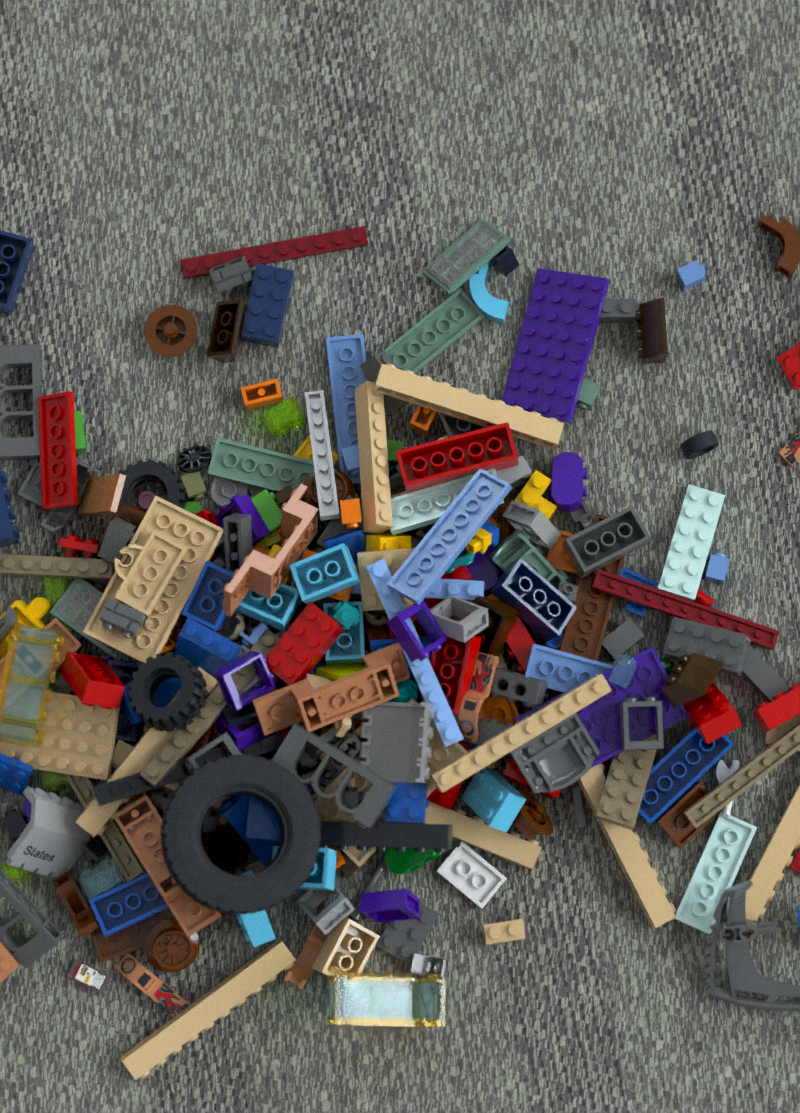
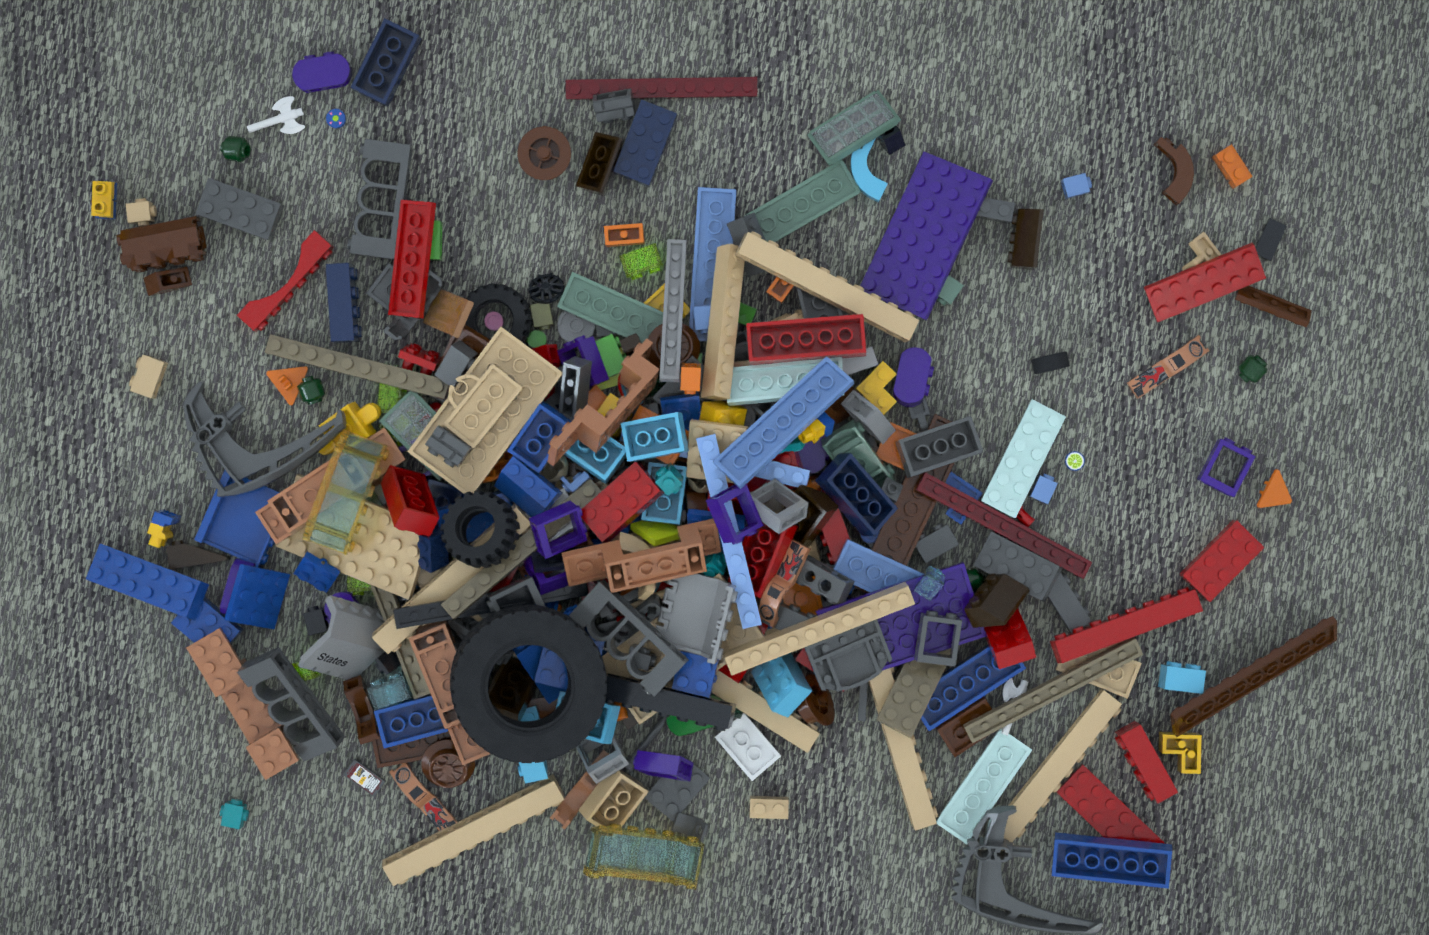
camera: 10 degrees right, 10 degrees up
(123, 725) = (432, 551): none -> dark blue brick
(742, 536) = (1074, 461): none -> tile

